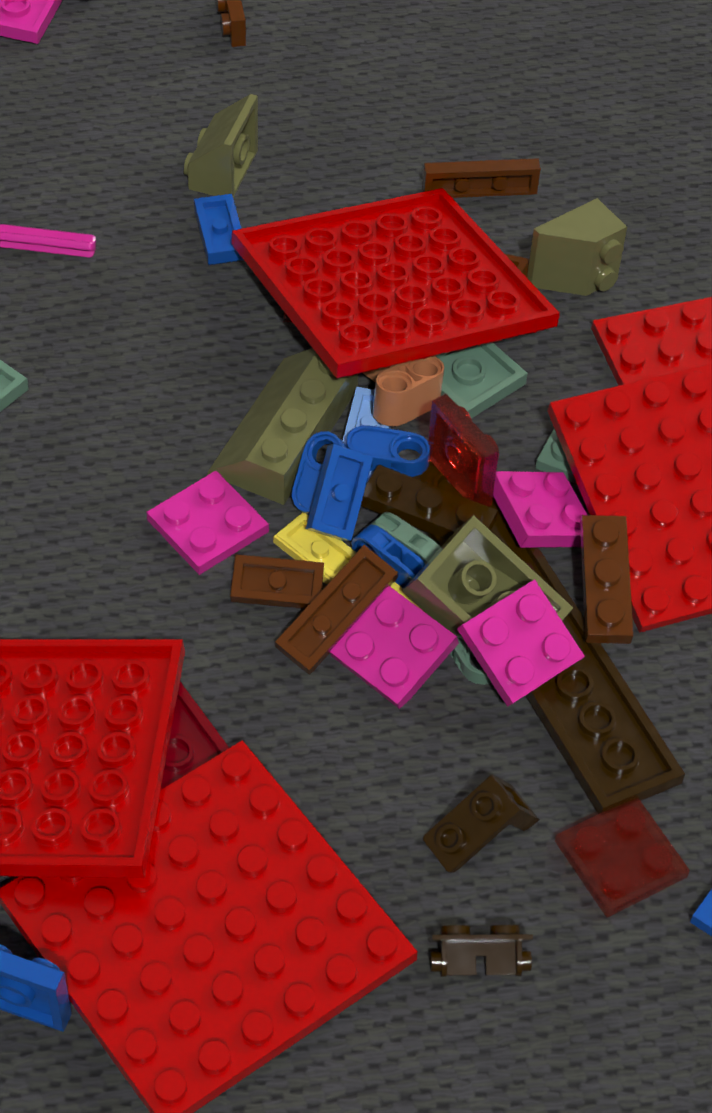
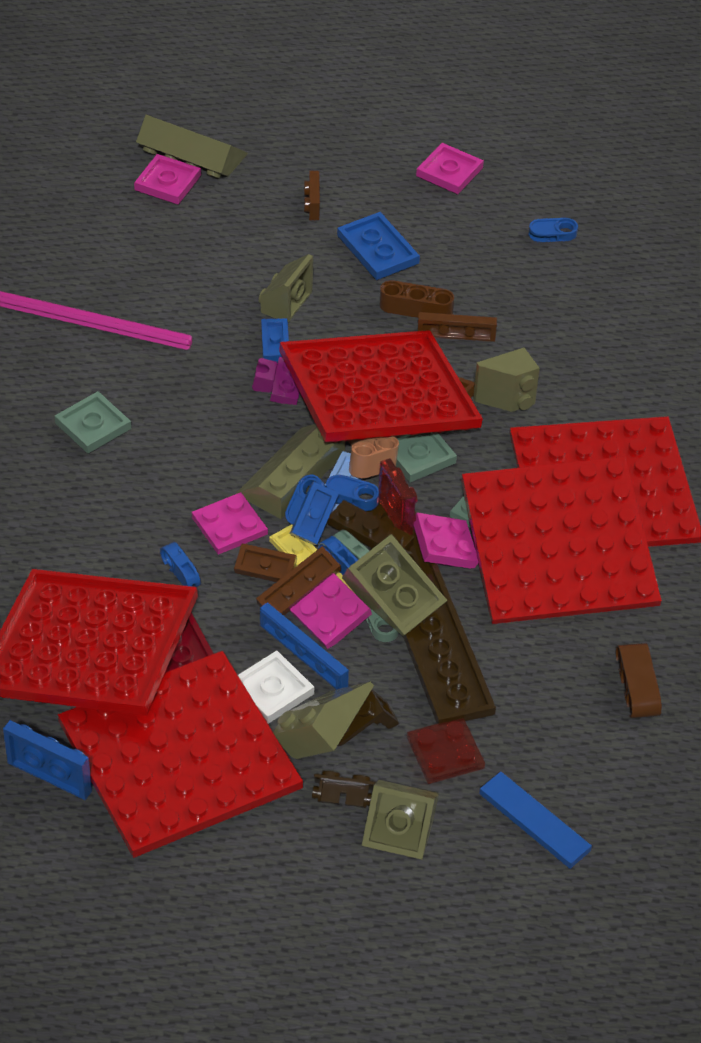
camera: 10 degrees right, 5 degrees down
(146, 602) = (180, 564): none -> blue piece
(235, 286) = (275, 378): none -> magenta plate
(334, 785) = (275, 686): none -> white plate
(340, 73) = (378, 245): none -> blue plate
(366, 714) = (303, 647): none -> blue tile
(411, 144) = (410, 299): none -> reddish brown beam
(424, 838) = (320, 722): none -> olive slope
(520, 642) = (408, 616): dark pink plate -> none
(574, 26) = (549, 229): none -> blue piece
(583, 990) = (399, 819): none -> olive slope
(606, 579) = (473, 586): reddish brown plate -> none

